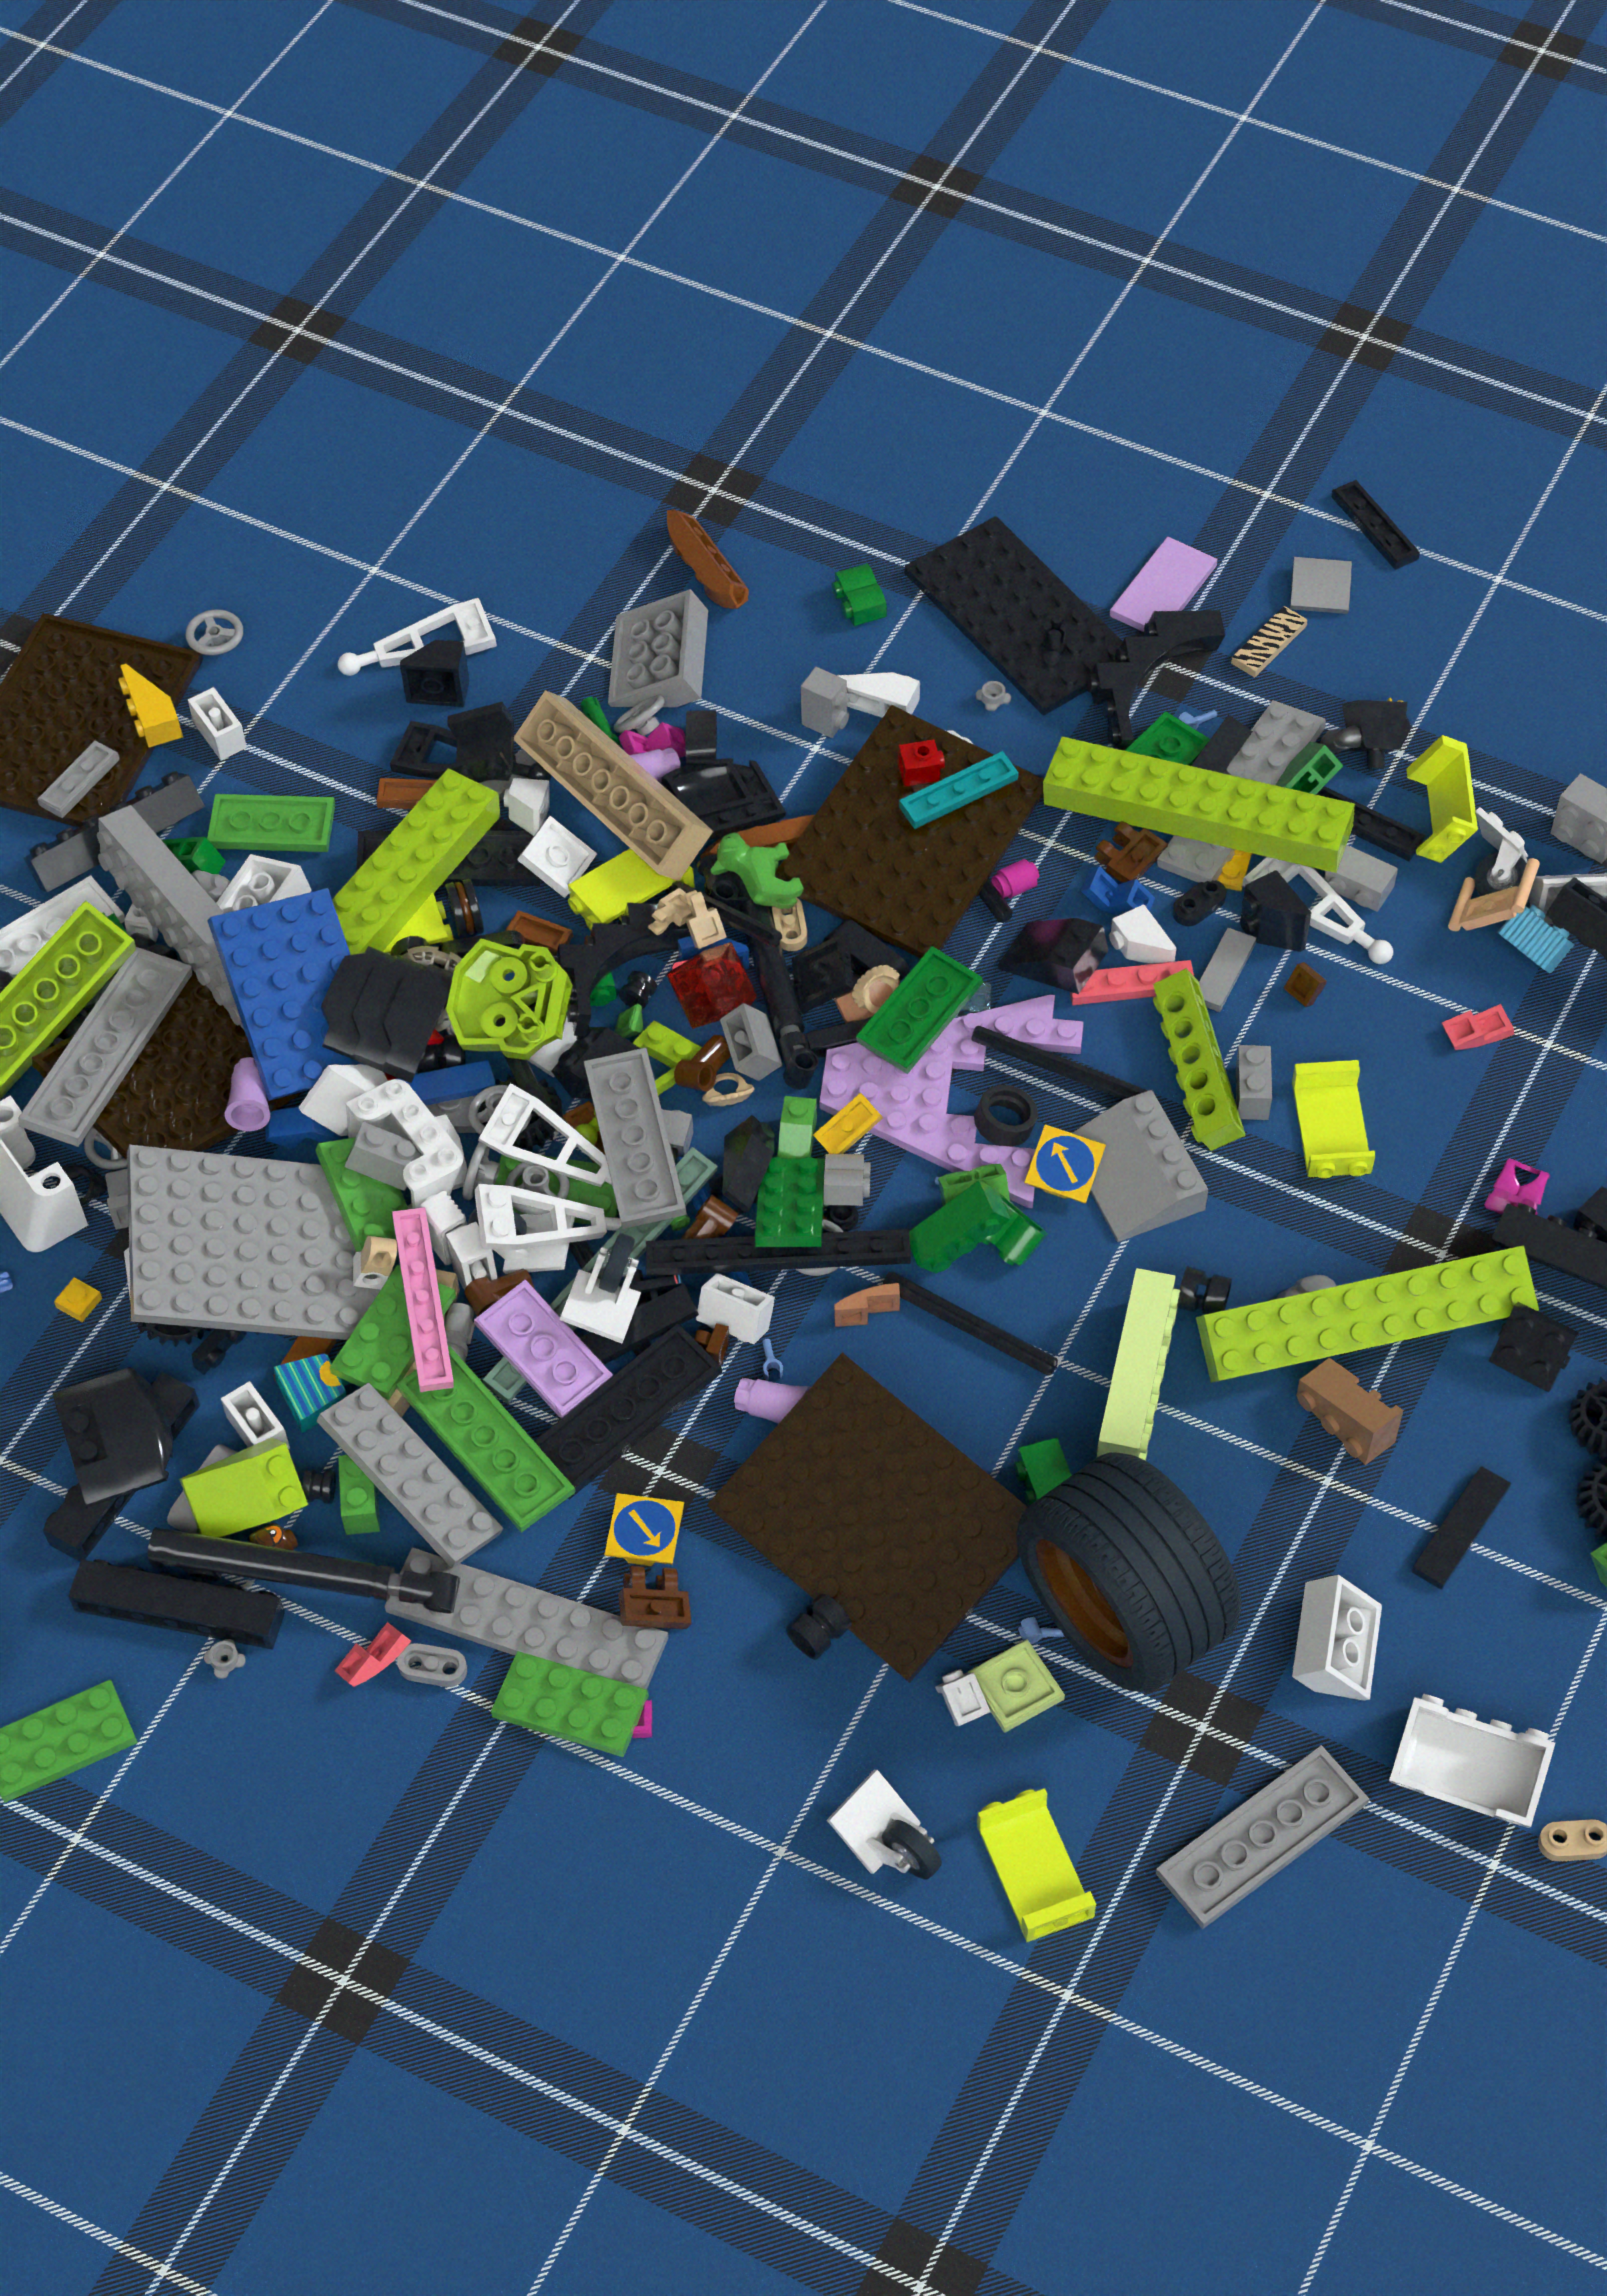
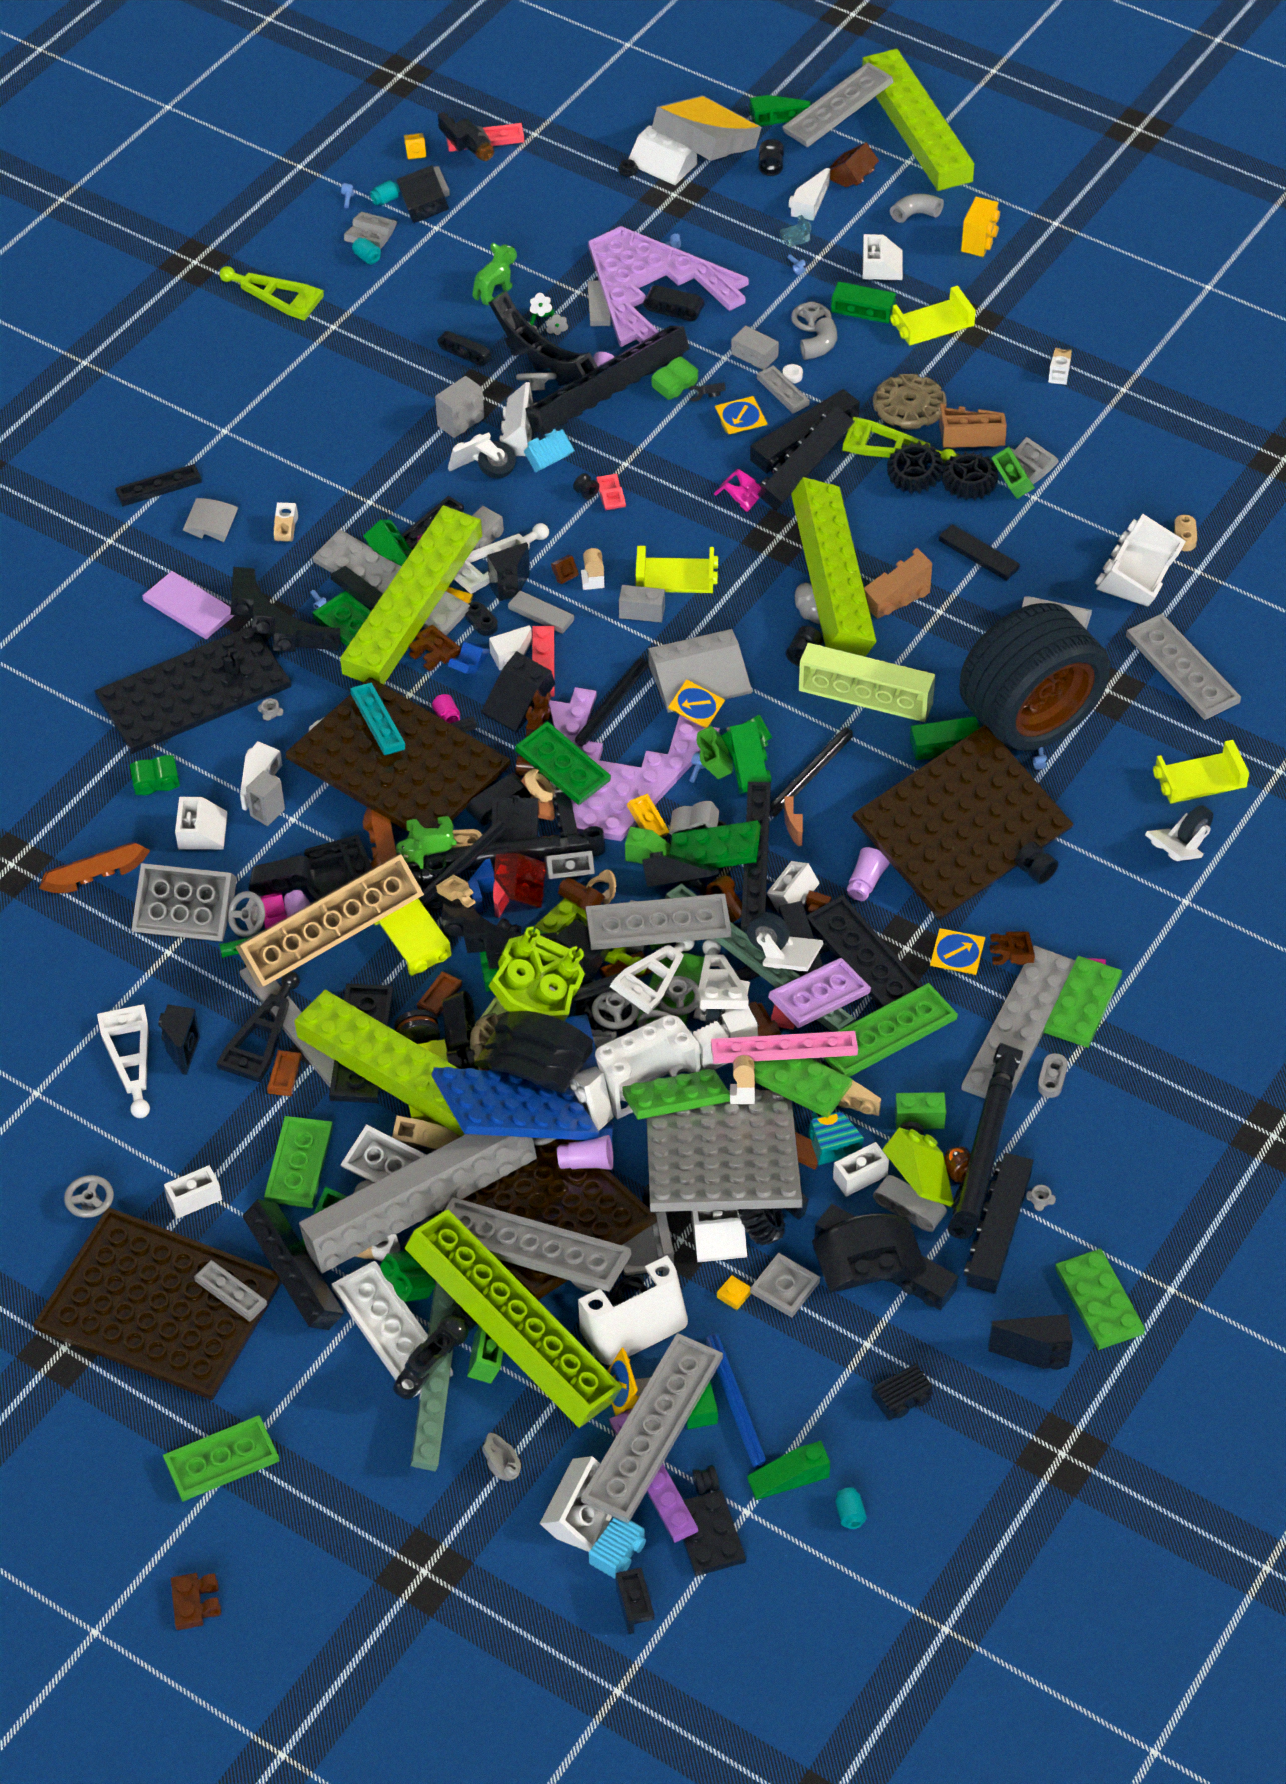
camera: 85 degrees left, 5 degrees down
(82, 1351) = (785, 1285): none -> light grey plate
(152, 706) = (173, 1232): yellow slope -> none
(364, 1664) = (1045, 1107): coral slope -> none
(381, 1155) = (655, 1070): light grey brick -> none
(410, 1475) = (913, 1073): light grey plate -> none
(483, 742) = (268, 1006): black panel -> none
(528, 803) = (316, 981): white slope -> none
(556, 856) = (377, 971): white plate -> none
(705, 923) = (468, 872): tan plate -> none
(770, 1362) = (835, 879): medium blue hand -> none
(780, 647) = (200, 824): none -> white slope
(920, 762) = (352, 735): red brick -> none
(963, 1696) = (1085, 795): white bracket -> none
(999, 1132) = (647, 723): black tyre -> none
(1014, 982) = (539, 714): none -> reddish brown plate
(1017, 1685) = (1077, 773): yellowish green tile -> none
(1224, 1123) = (608, 621): lime brick -> none
(1269, 641) = (255, 554): tan tile -> none
(1303, 1011) = (593, 574): none -> tan leg
(1327, 660) = (285, 522): none -> tan leg
(1371, 729) = (357, 502): black torso -> none
(1450, 794) = (430, 473): neon yellow panel -> none
(1478, 993) = (586, 486): none -> black wheel
(1494, 906) = (524, 465): light nougat plate -> none
(1533, 1346) = (863, 494): black plate -> none

